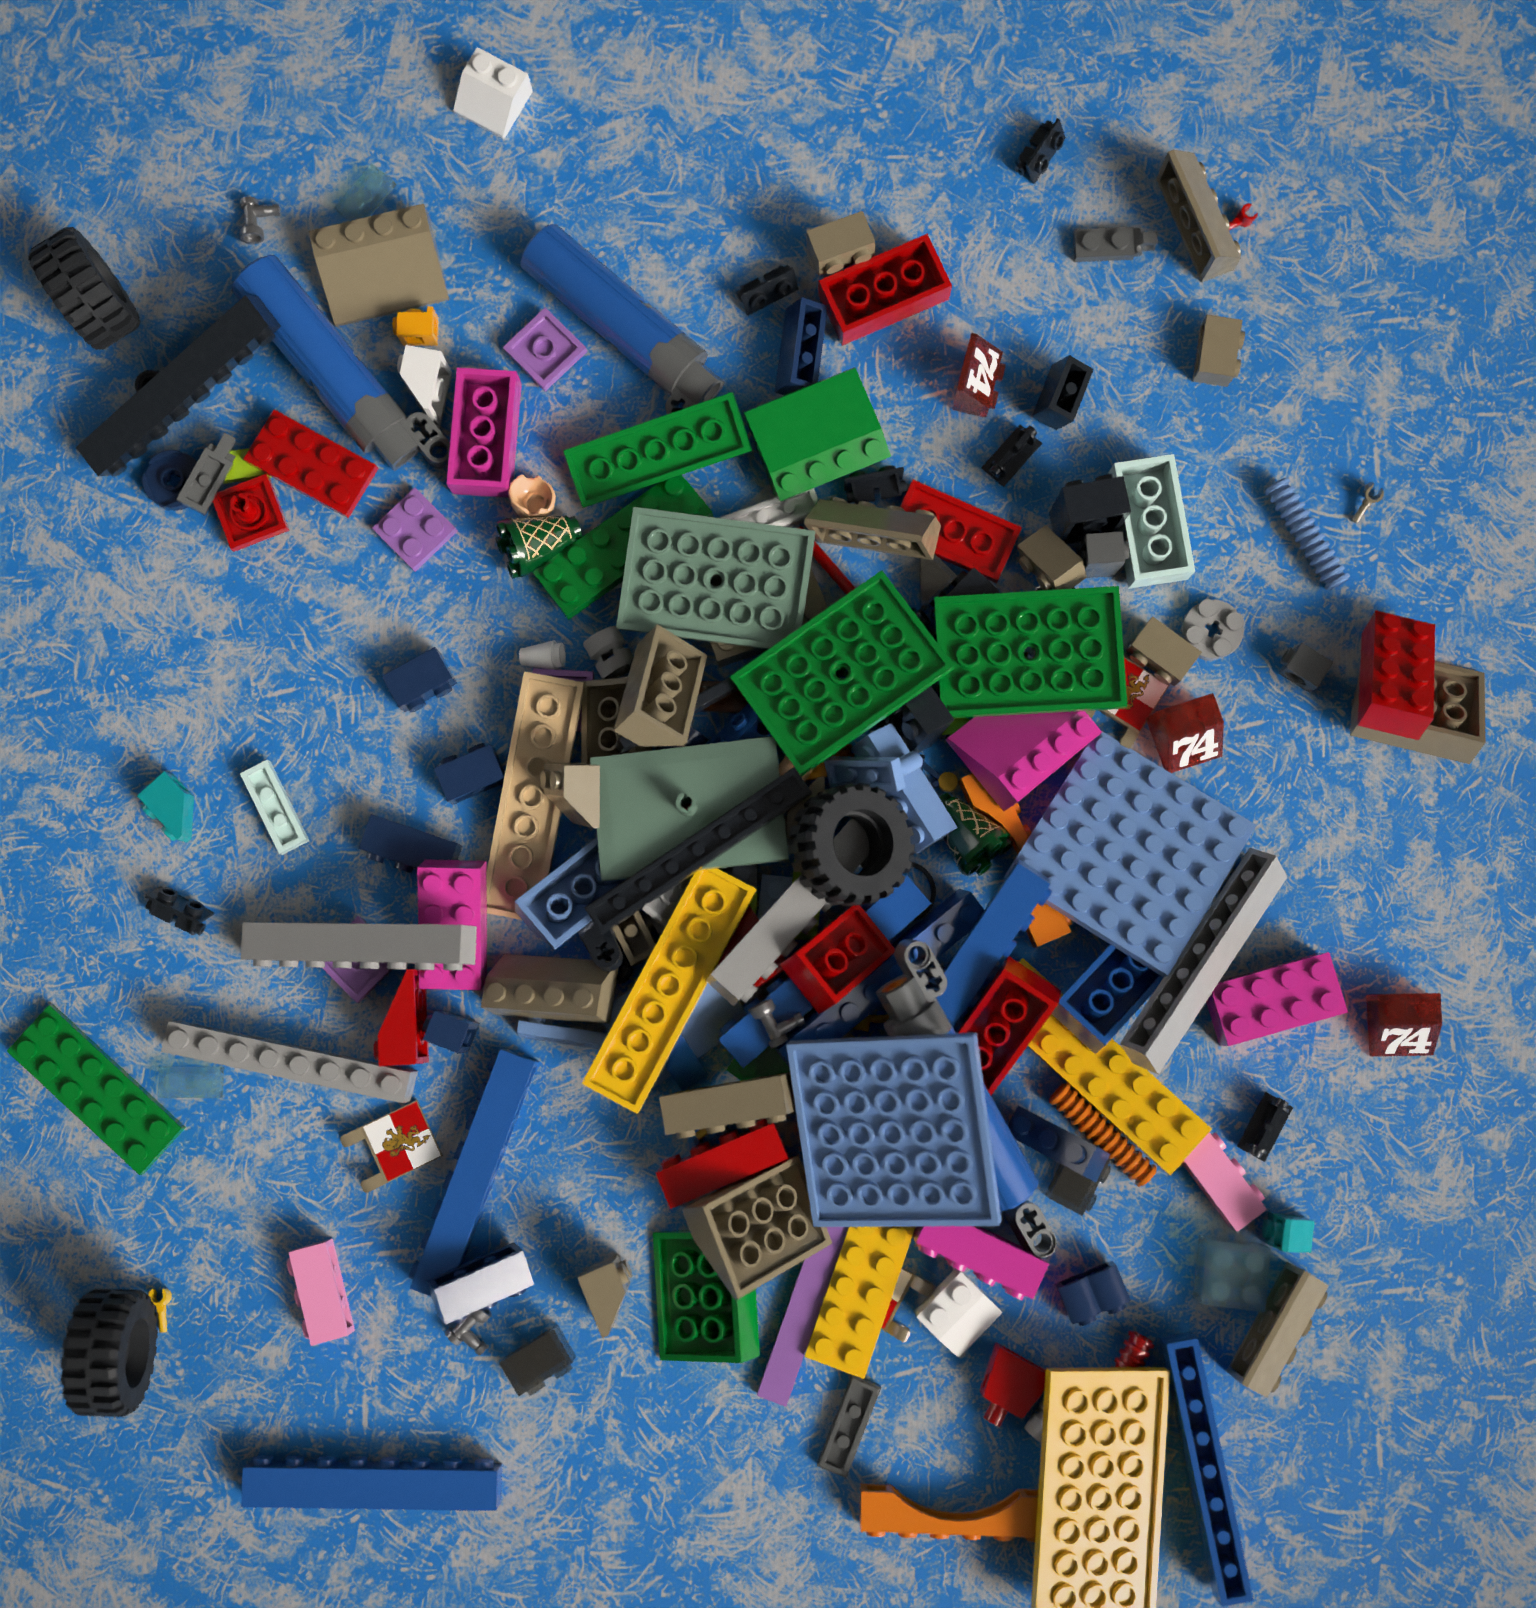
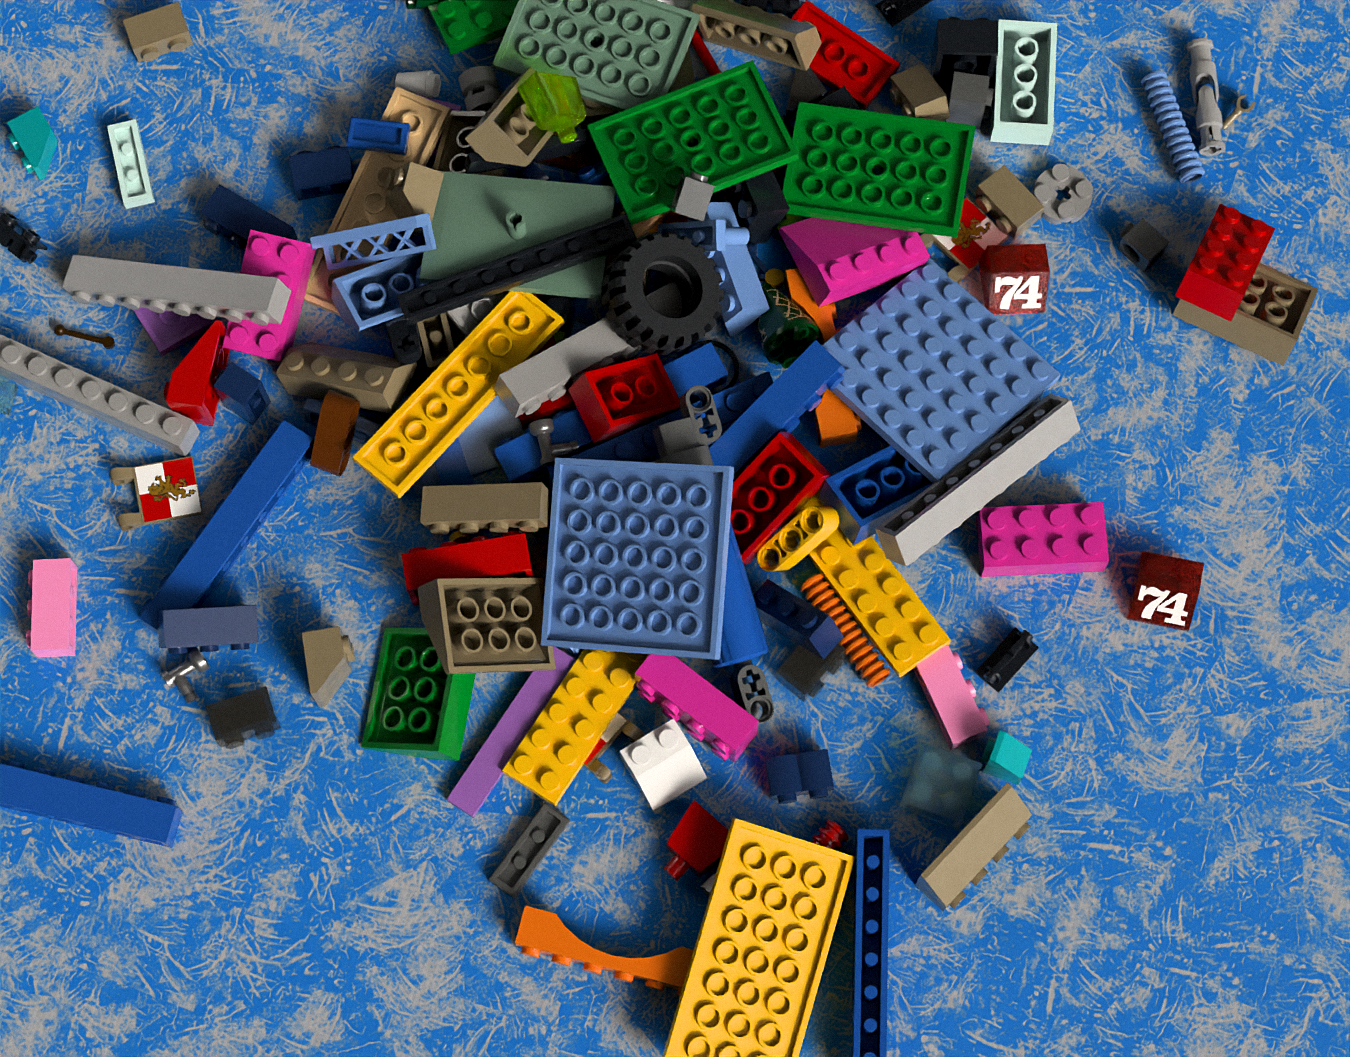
camera: 10 degrees right, 10 degrees down
(265, 660) = (158, 32): none -> dark tan brick
(301, 999) = (108, 342): none -> dark brown hinge
(420, 680) = (297, 80): dark blue brick -> none
(519, 728) = (378, 135): none -> blue tile
(546, 841) = (369, 232): none -> medium blue fence
(555, 1053) = (335, 433): none -> reddish brown beam
(693, 664) = (554, 103): none -> clear neon green torso
(860, 739) = (692, 196): none -> brick
(1048, 1050) = (810, 535): none -> yellow beam
(1339, 512) = (1208, 115): none -> light grey piece

